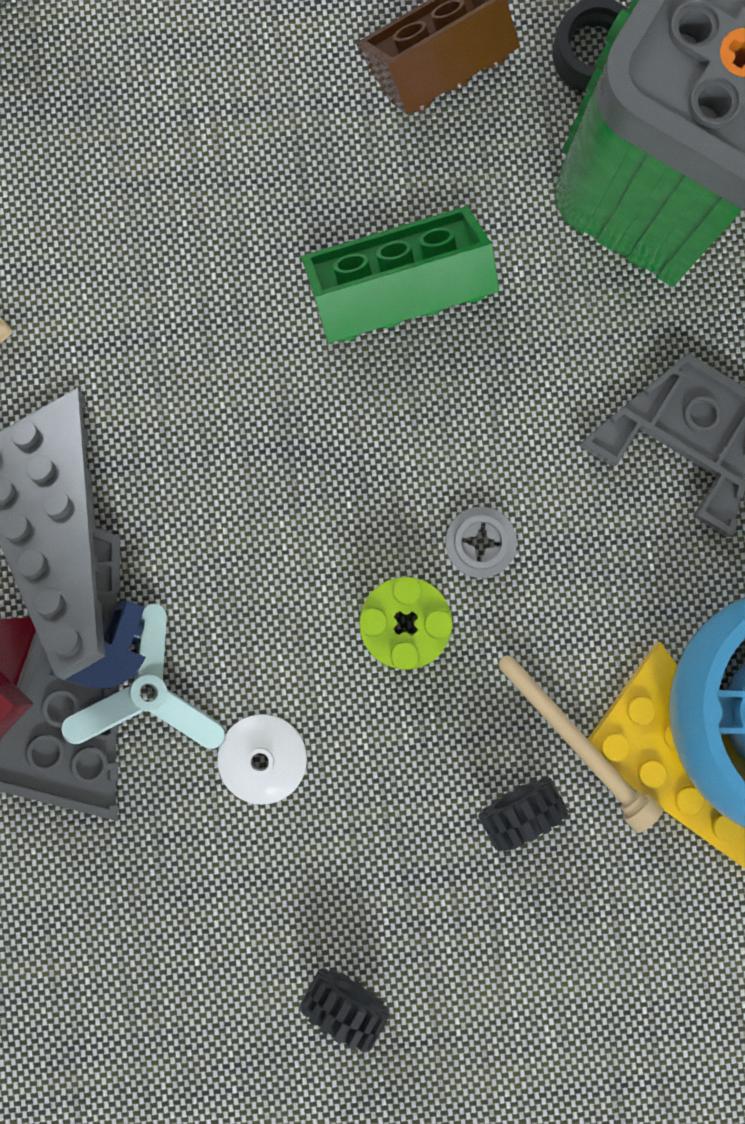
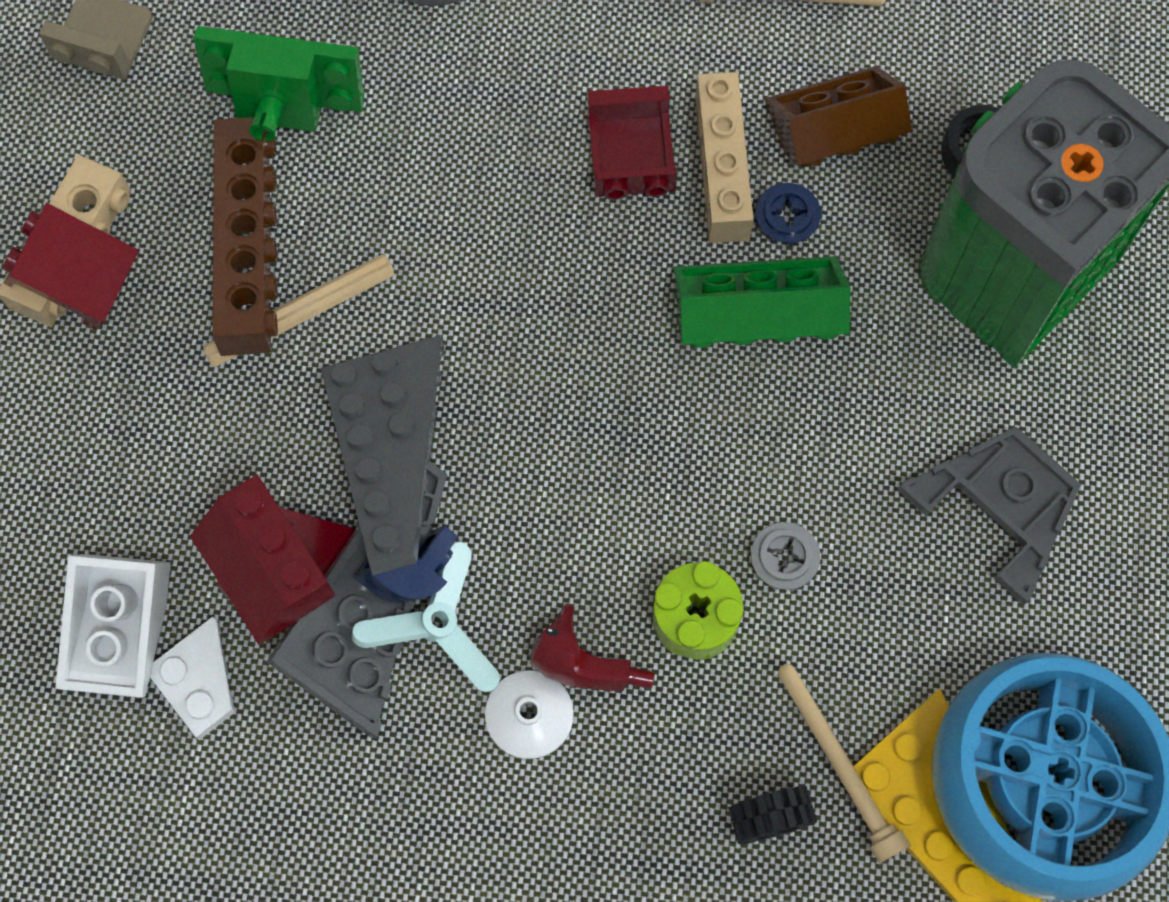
camera: 10 degrees right, 15 degrees down
(225, 125) = (631, 142): none -> dark red panel
(281, 703) = (562, 660): none -> dark red animal
(326, 120) = (723, 157): none -> tan brick
(419, 155) = (800, 201): none -> dark blue gear

